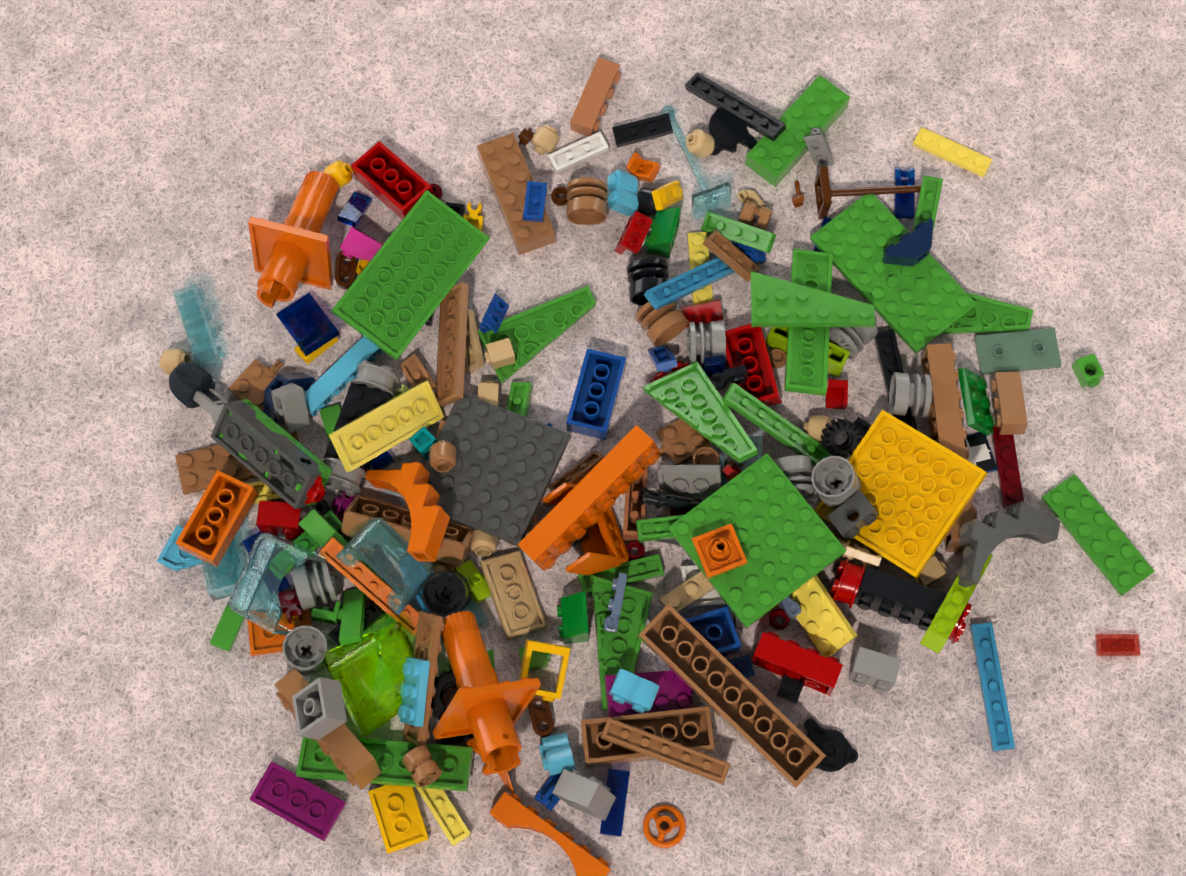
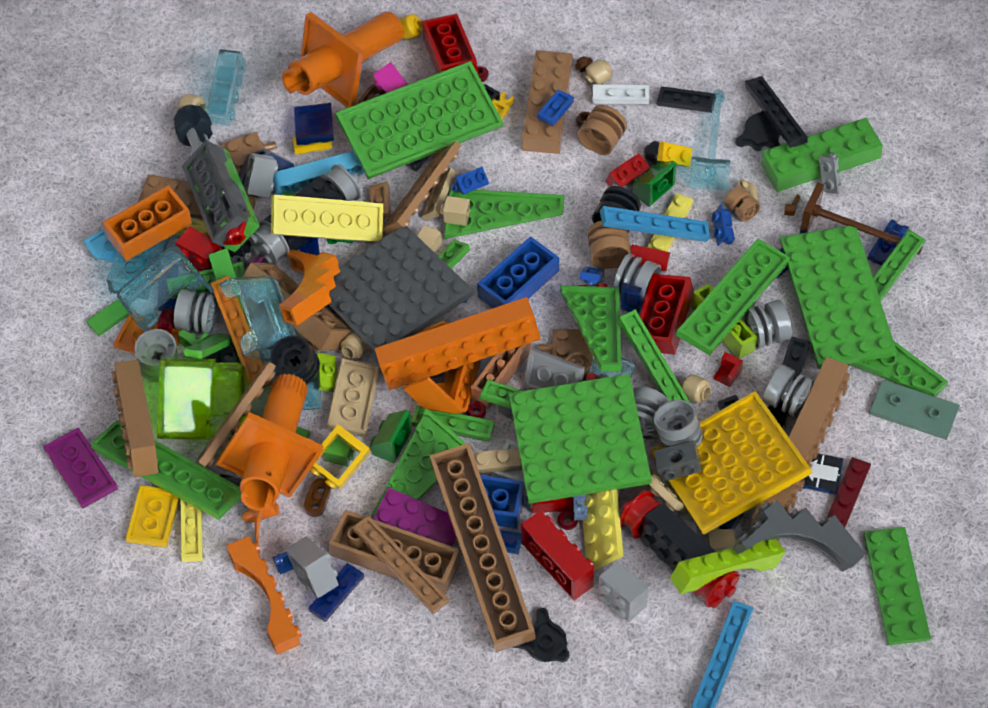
camera: 30 degrees right, 15 degrees down
(319, 708) = (134, 386): light grey brick -> none
(354, 209) = (407, 57): clear blue tile -> none
(414, 691) = (220, 419): medium azure plate -> none
(423, 441) = (351, 247): teal panel -> none
(423, 767) = (192, 478): medium nougat wheel -> none
(443, 456) = (357, 260): medium nougat head -> none
(556, 753) = (312, 526): medium azure brick -> none
(595, 97) = (661, 58): nougat brick -> none
(615, 604) = (432, 435): sand blue hinge -> none
(623, 192) = (637, 136): medium azure brick -> none
(633, 690) = (403, 506): medium azure brick -> none
(643, 169) = (667, 128): orange bracket -> none
(653, 813) = (366, 622): orange piece -> none
(660, 499) = (519, 374): black pin -> none
(700, 143) = (729, 128): tan head -> none
(719, 551) = (539, 426): orange plate -> none
(731, 255) = (701, 223): medium nougat tile -> none
(733, 375) = (644, 307): black plate -> none
(739, 232) = (718, 206): bright green tile -> none
(790, 689) = (541, 577): black plate -> none
(794, 305) = (723, 273): bright green wing -> none
(833, 430) = (711, 388): black tyre -> none
(912, 246) = (862, 279): dark blue slope -> none
(952, 152) = (953, 230): light yellow plate -> none
(976, 401) = (846, 426): green plate -> none
(1009, 403) = (877, 442): medium nougat brick -> none
(1088, 363) = (971, 444): bright green brick -> none
(1117, 645) = (859, 681): clear red tile -> none

